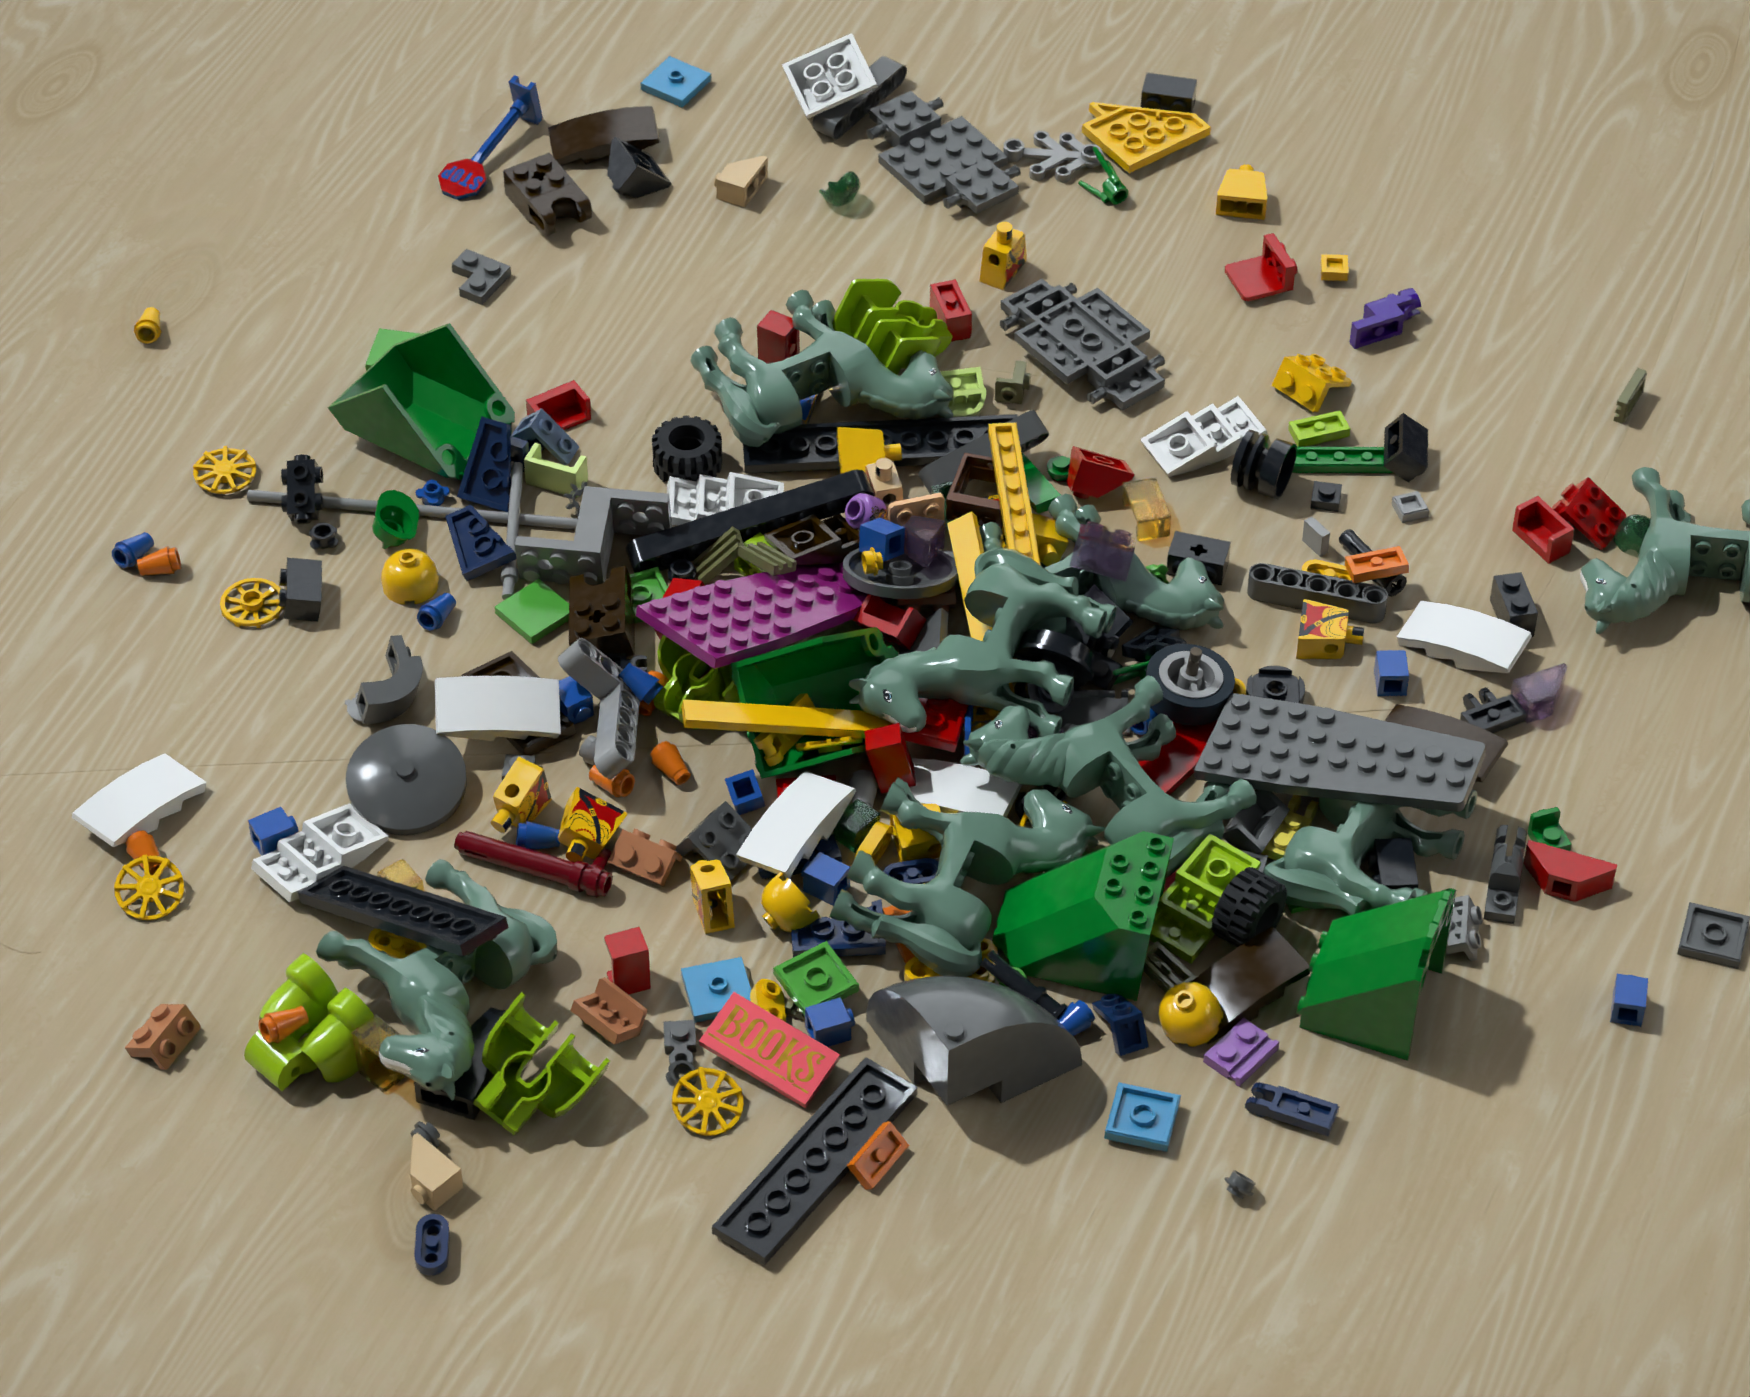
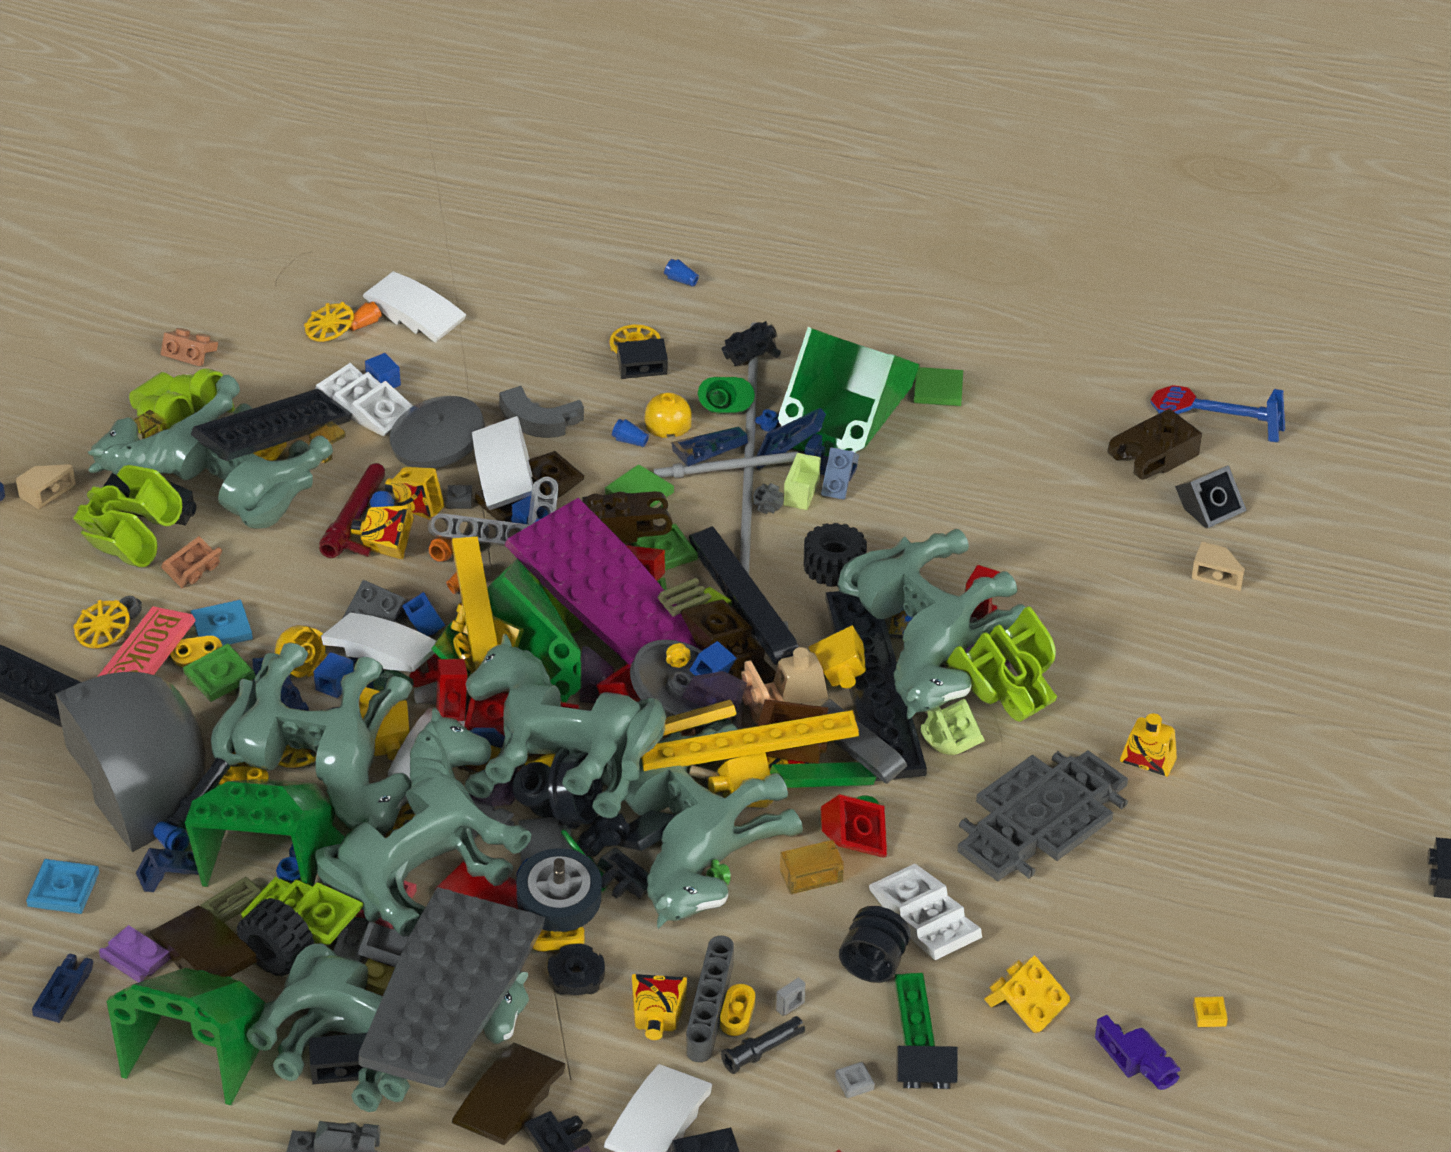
camera: 85 degrees right, 5 degrees down
(148, 326) = (939, 250): yellow cone -> none
(160, 562) = (668, 289): orange cone -> none
(224, 470) = (780, 310): yellow wheel -> none
(280, 1024) = (160, 374): orange cone -> none
(323, 536) = (710, 367): black plate -> none
(428, 1132) = (79, 478): dark grey plate -> none
(483, 275) = (1049, 427): dark grey plate -> none
(564, 404) = (880, 478): red panel -> none
(592, 134) = (1255, 474): dark brown slope -> none
(600, 516) = (708, 500): light grey bracket -> none
(629, 960) = (234, 559): red panel -> none
(644, 857) = (364, 565): nougat bracket -> none
(675, 81) = (1355, 518): dark azure plate -> none
(680, 1040) = (171, 602): dark grey plate -> none
(682, 569) = (692, 568): black plate -> none
(712, 882) = (312, 602): yellow torso -> none
(713, 495) = (784, 582): white slope -> none
(718, 555) = (709, 580): olive tile -> none
(829, 76) = (1365, 597): white slope -> none
(829, 1022) = (179, 679): blue brick -> none
(843, 117) = (1369, 638): dark grey beam -> none
(843, 191) = (1221, 631): clear green hair -> none
(863, 509) = (759, 654): medium lavender head -> none
(877, 1155) = (35, 722): orange plate -> none
(941, 158) = (1302, 704): dark grey piece -> none
(952, 308) = (1063, 709): red panel -> none
(1013, 389) = (972, 768): olive bracket -> none
(1055, 155) = (1334, 810): light grey plant -> none
(1103, 551) = (704, 798): clear purple bracket -> none
(1112, 187) = (1287, 830): green plant -> none
(1140, 134) = (1383, 851): yellow wing -> none
(1190, 1014) = (168, 907): yellow cylinder -> none
(1209, 551) = (747, 906): black brick -> none
(1242, 194) = (1309, 932): yellow torso -> none
(1264, 274) = (1184, 950): red bracket -> none
(1319, 429) = (953, 1000): lime plate -> none
(1326, 496) = (859, 1010): black plate -> none
(1376, 564) = (734, 1029): orange plate -> none
(1391, 673) = (605, 1056): brick -> none
(1465, 928) = (269, 1109): light grey bracket -> none

